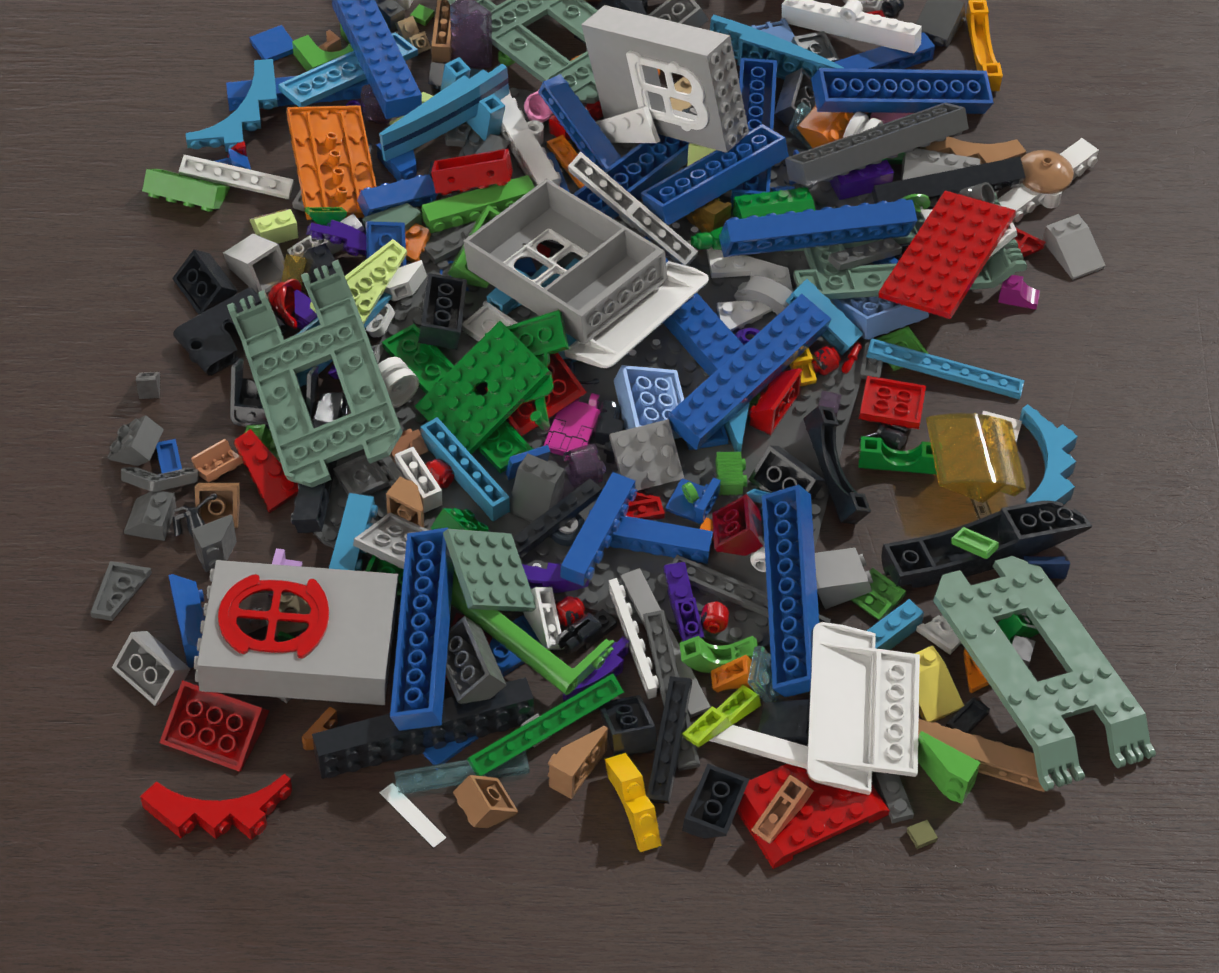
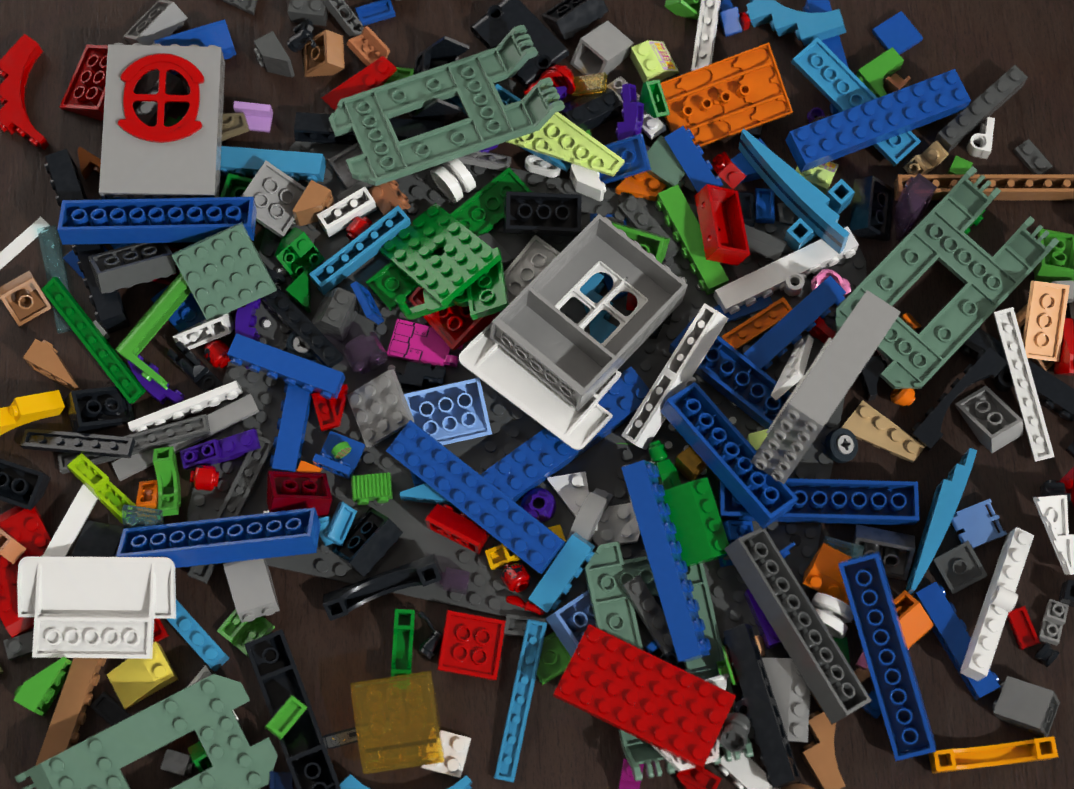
camera: 90 degrees right, 20 degrees up
(407, 168) = (727, 170): none -> red bracket
(441, 152) = (764, 206): none -> blue tile
(506, 523) = (300, 291): none -> green slope

